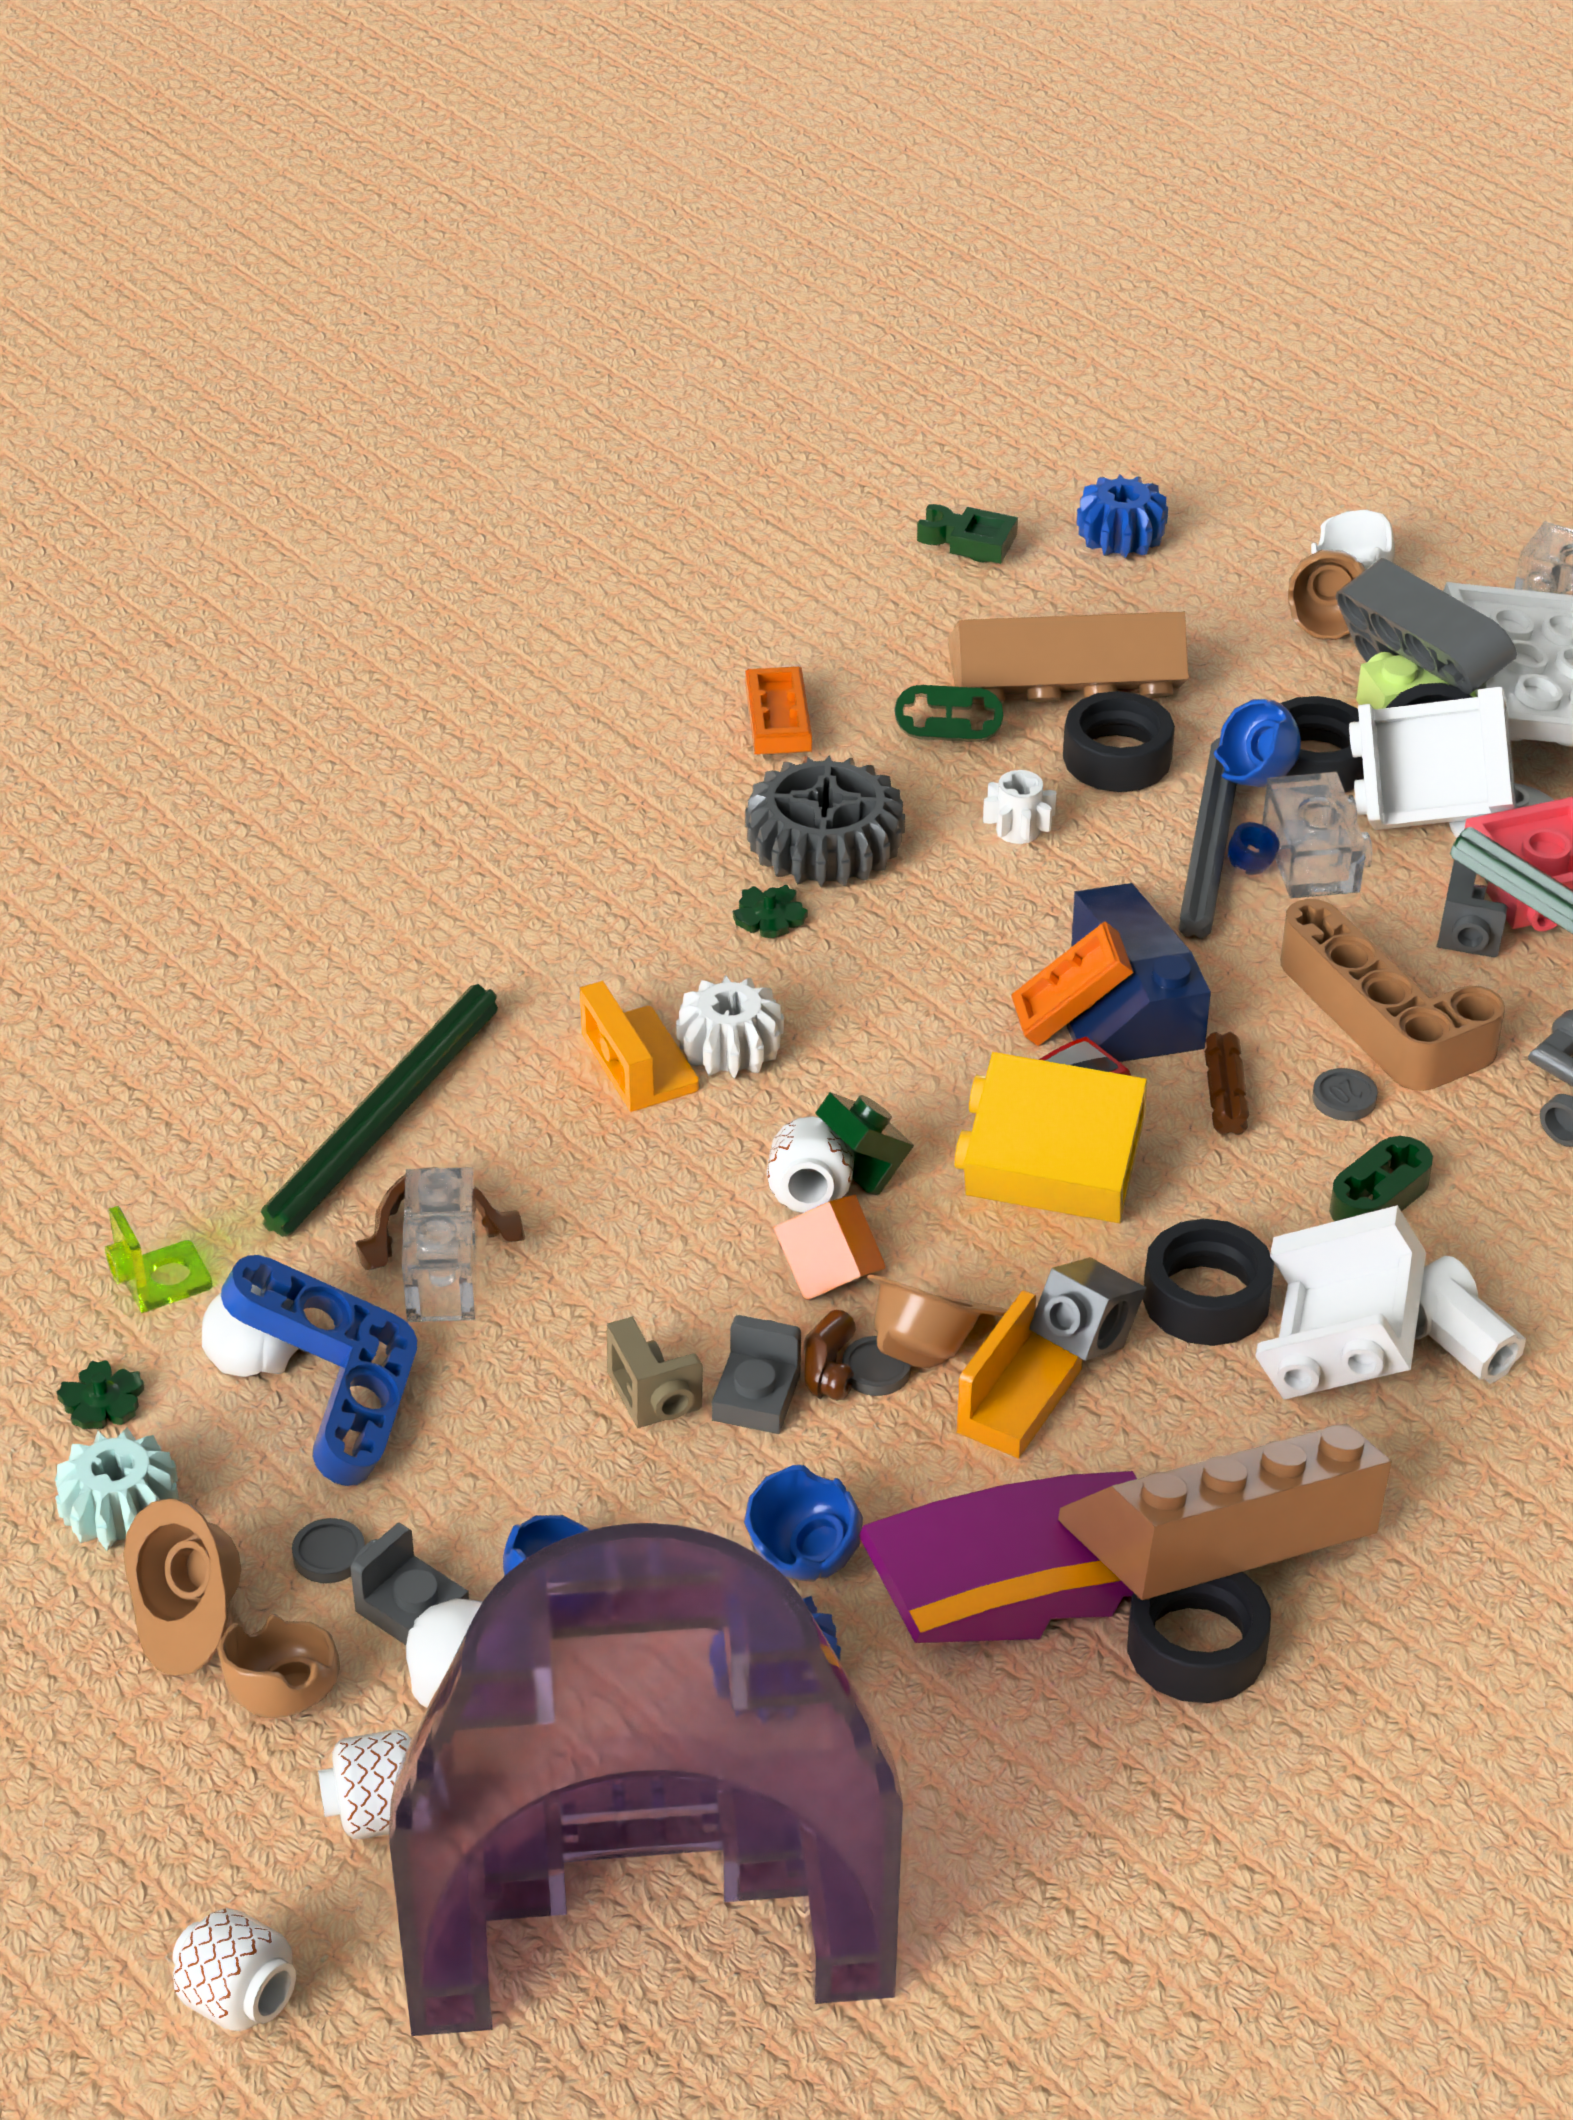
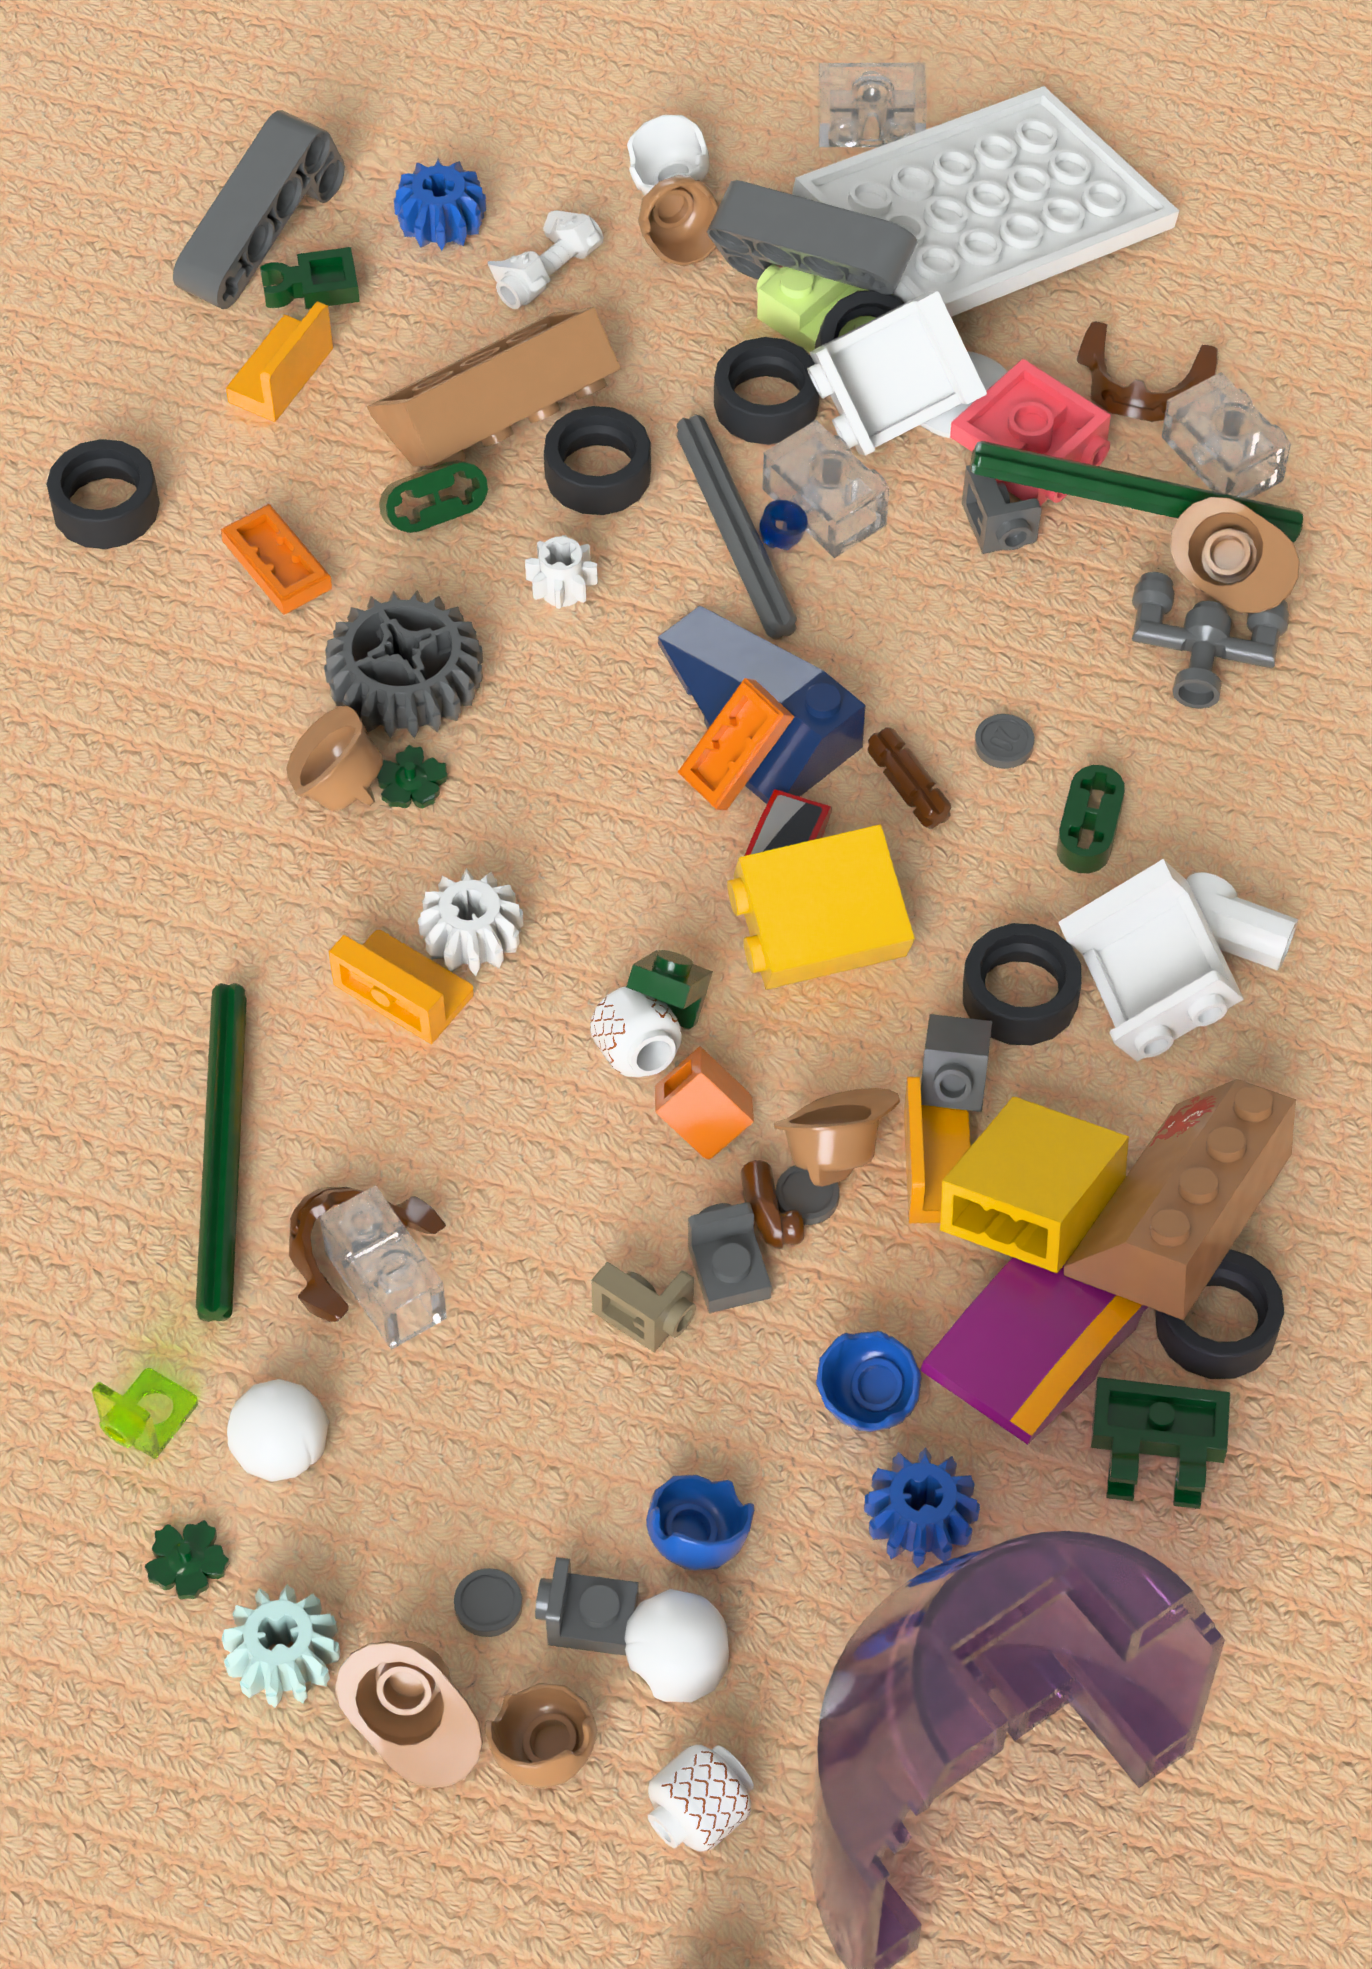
camera: 30 degrees left, 15 degrees up
(348, 1345) = (383, 1409): blue beam -> none
(674, 637) = (94, 462): none -> black tyre
(705, 870) = (335, 761): none -> medium nougat piece
(899, 579) = (282, 364): none -> light orange panel
(943, 462) = (255, 204): none -> dark grey beam
(1066, 1690) = (1159, 1422): none -> dark green plate
(1080, 1426) = (1033, 1183): none -> yellow brick
(1159, 591) = (526, 275): none -> white piece
(1258, 743) = (736, 420): blue hair -> none
(1381, 1008) = (981, 641): medium nougat beam -> none

